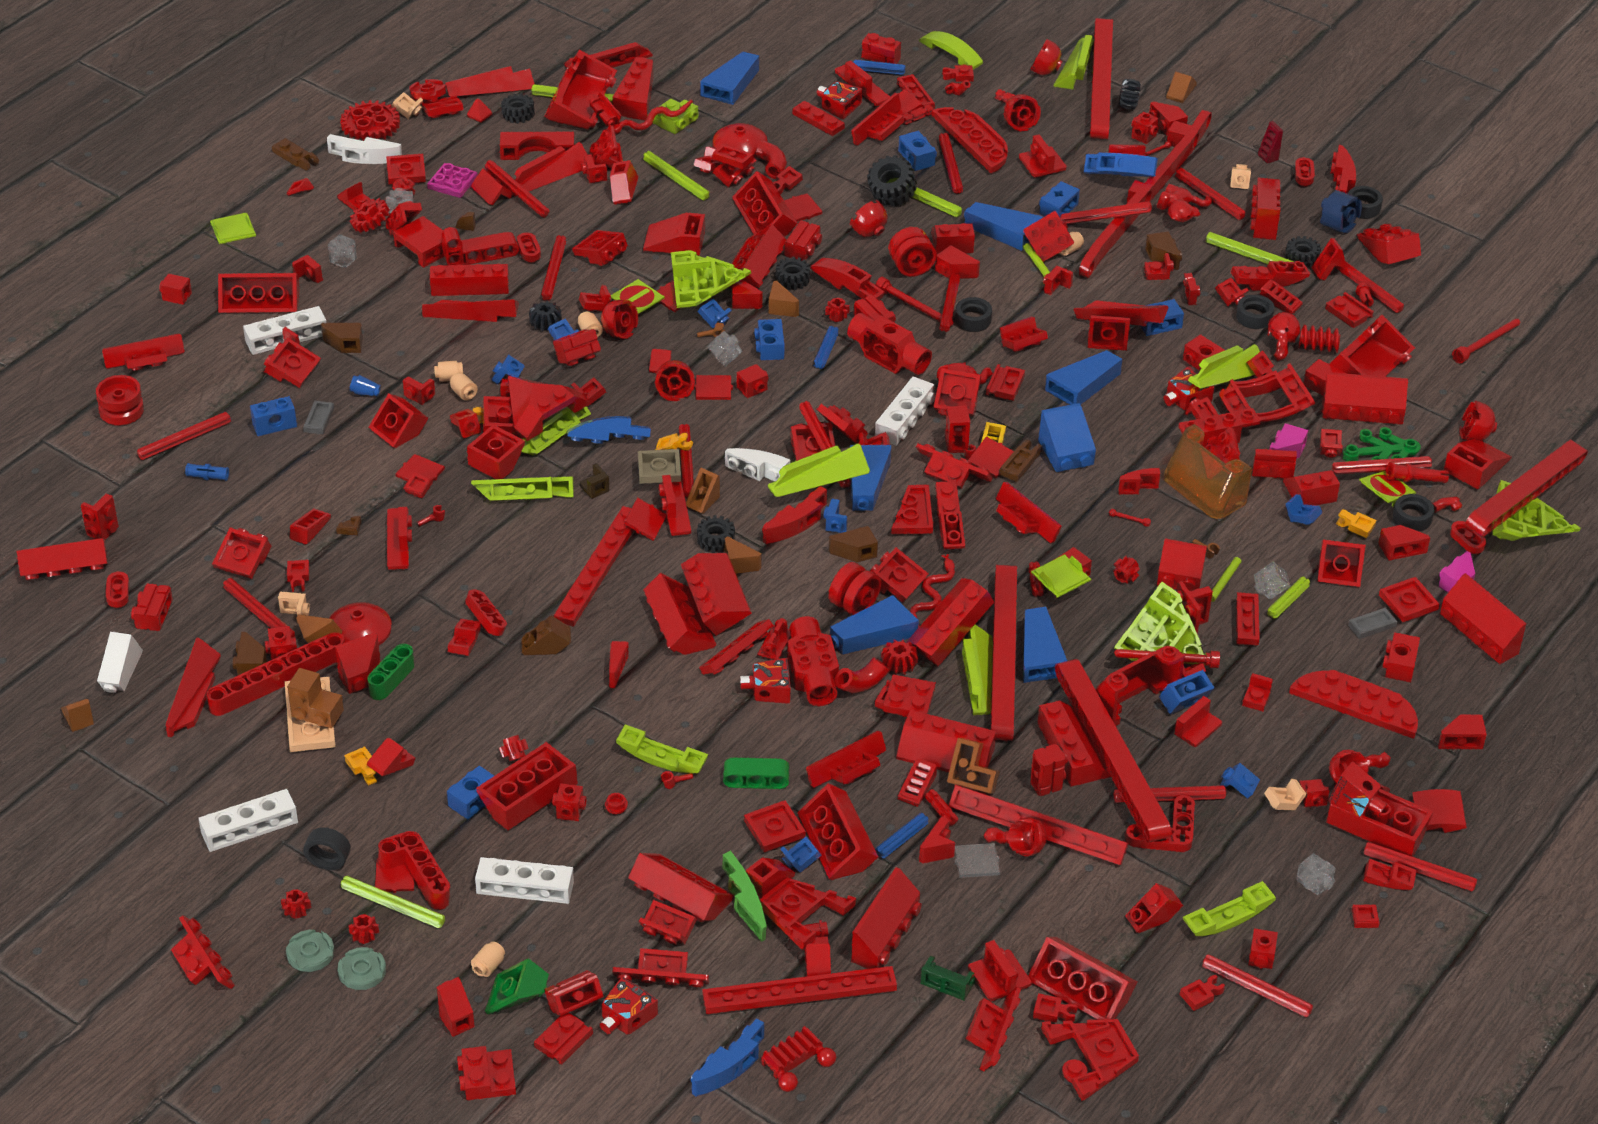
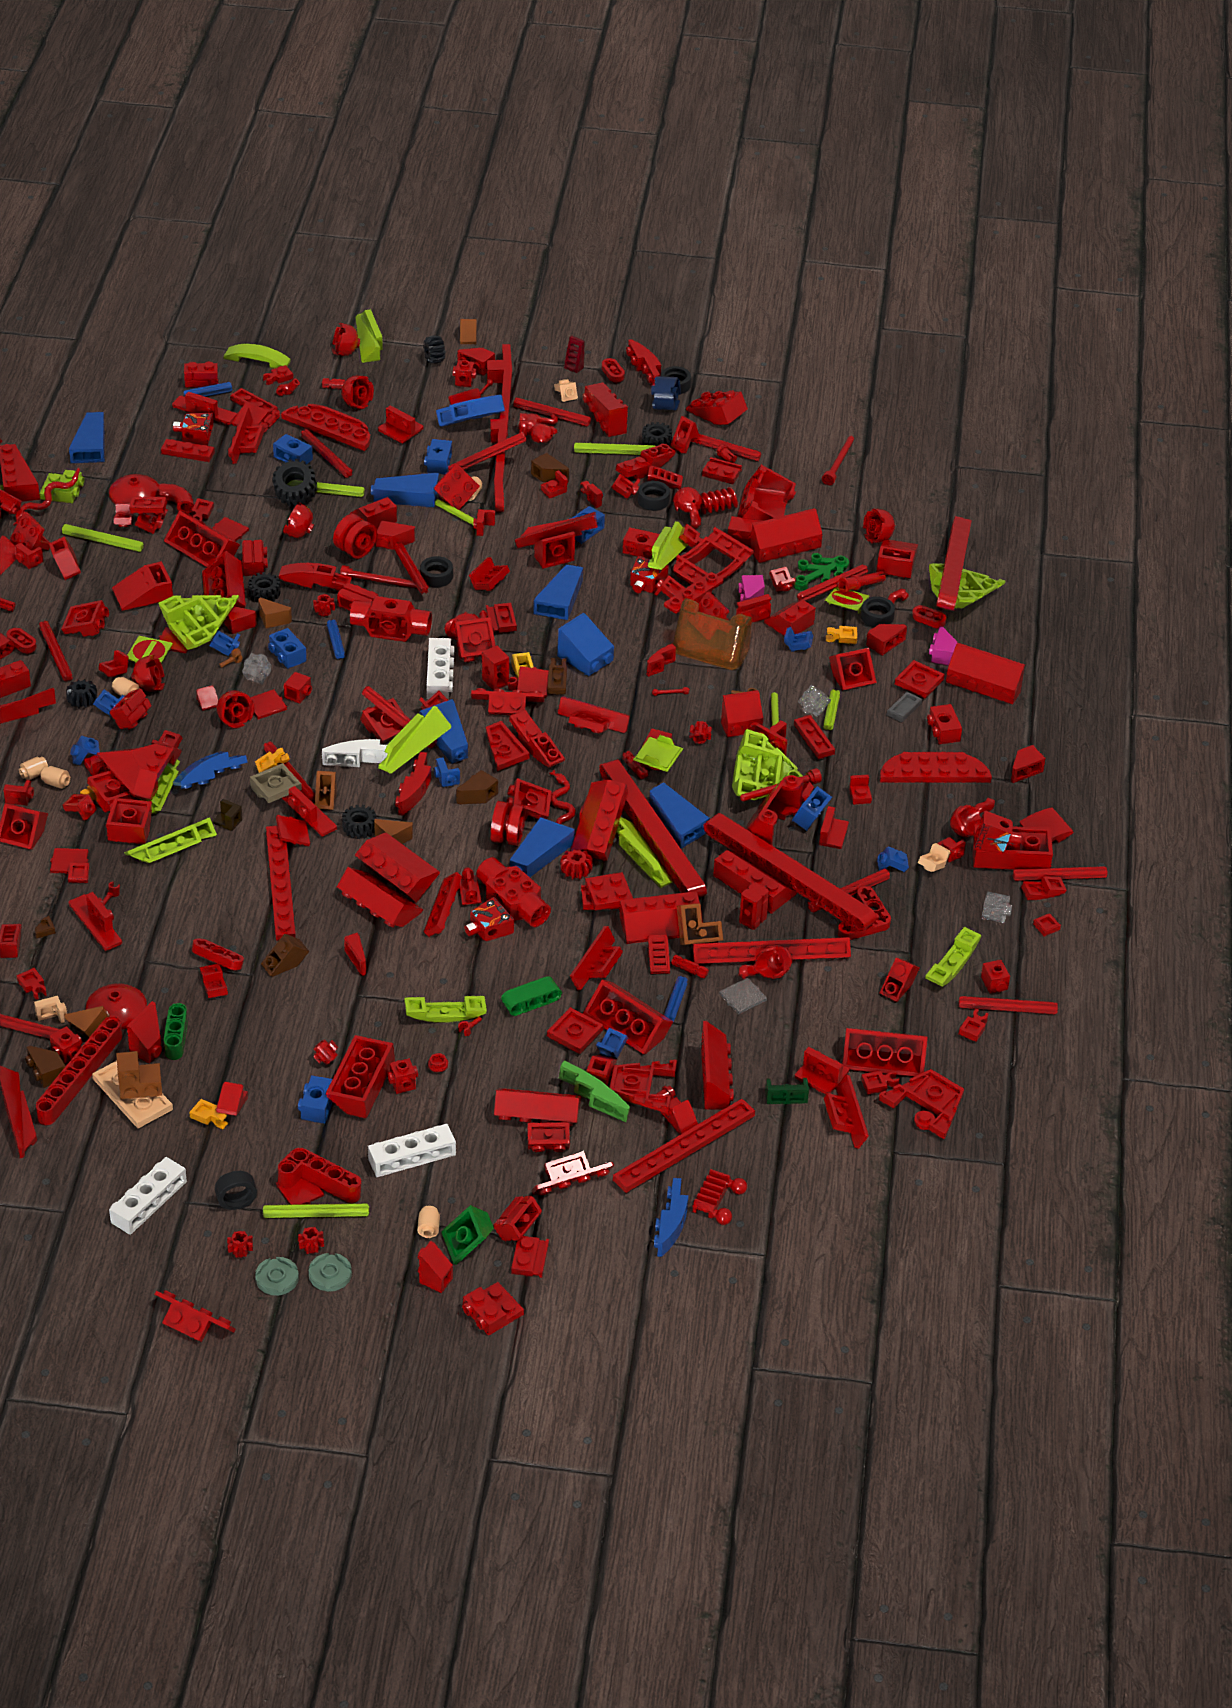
camera: 30 degrees left, 0 degrees up
(627, 1008) = (565, 1212): red torso -> none
(843, 422) = (405, 697): red plate -> none
(862, 679) = (561, 891): red cylinder -> none
(937, 844) = (709, 995): red slope -> none
(1101, 79) = (401, 344): red beam -> none

